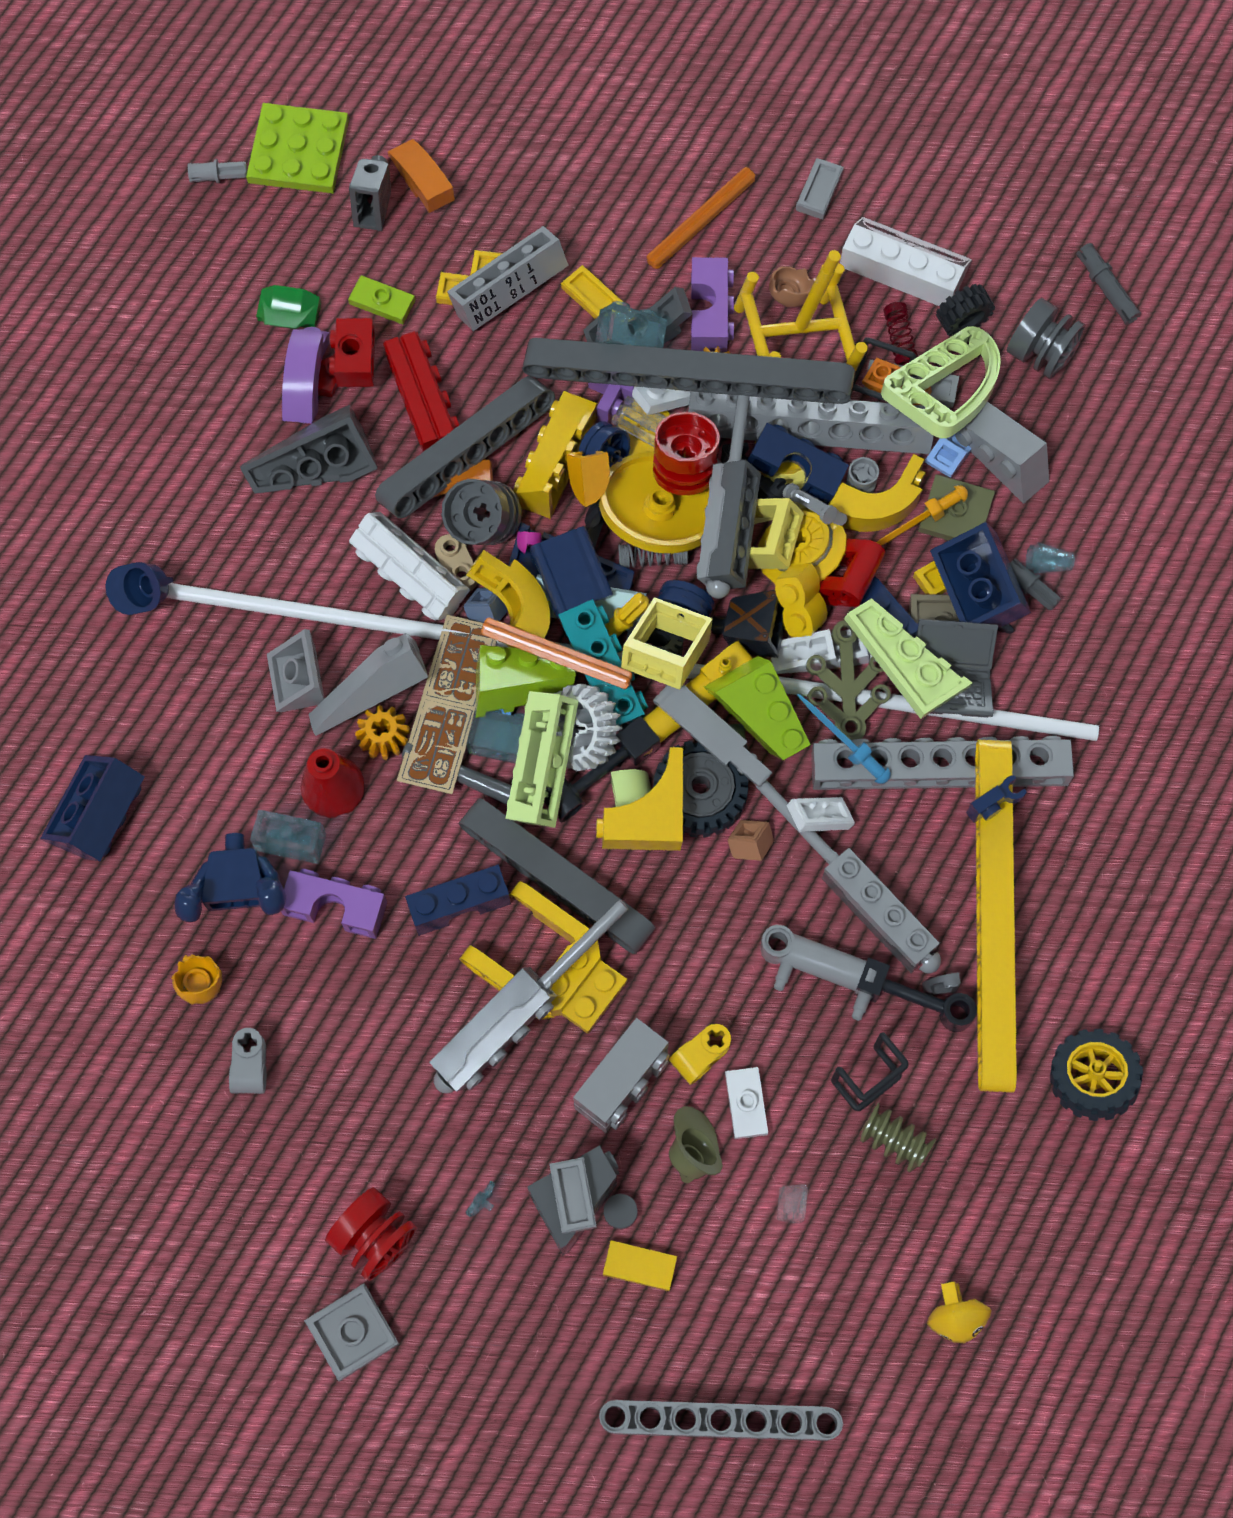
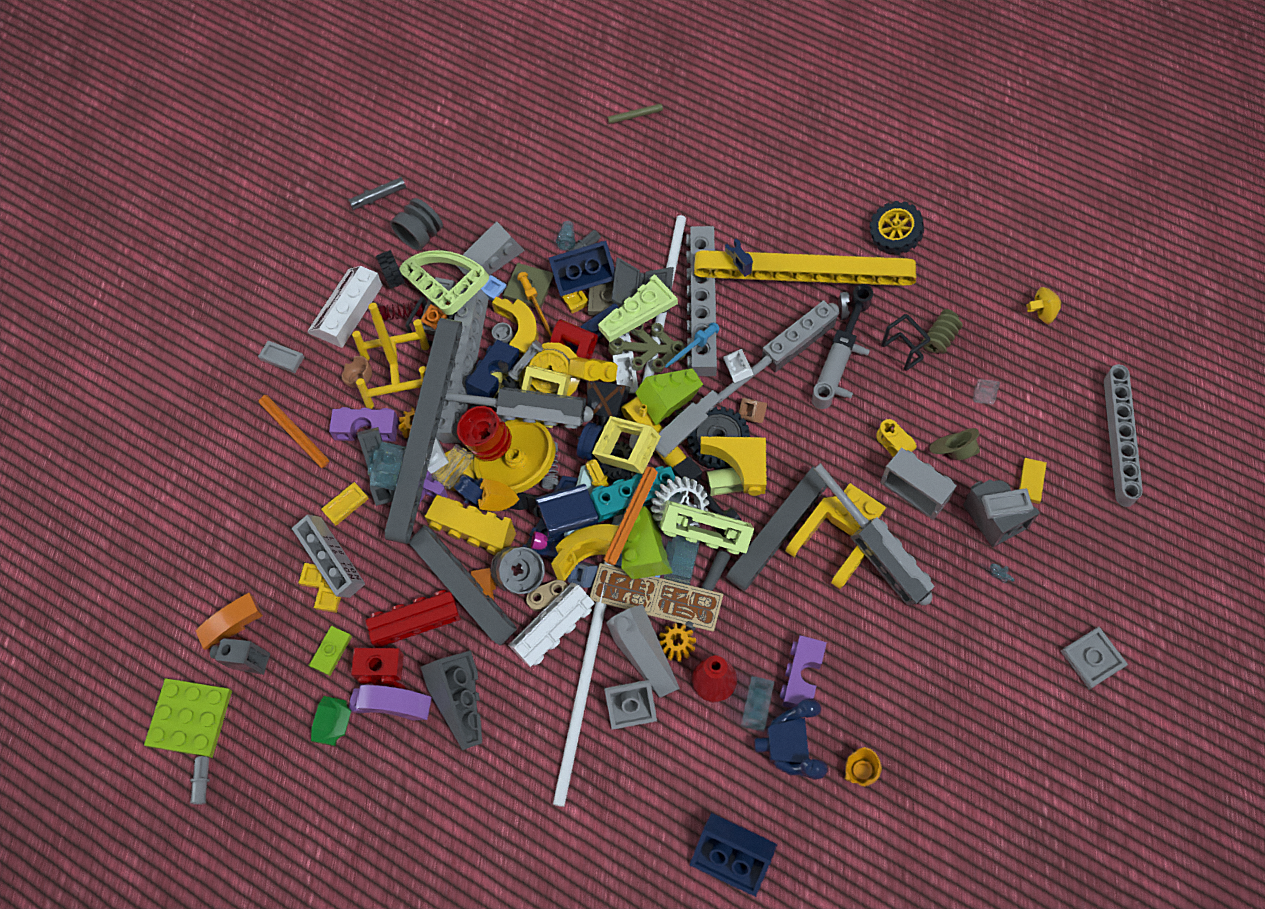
camera: 85 degrees left, 5 degrees down
(137, 587) = (559, 826): dark blue piece -> none
(248, 1069) = (924, 730): light grey piece -> none
(365, 1229) = (1035, 639): red wheel -> none
(437, 905) = (804, 598): dark blue arch -> none
(746, 1103) = (924, 417): white plate -> none

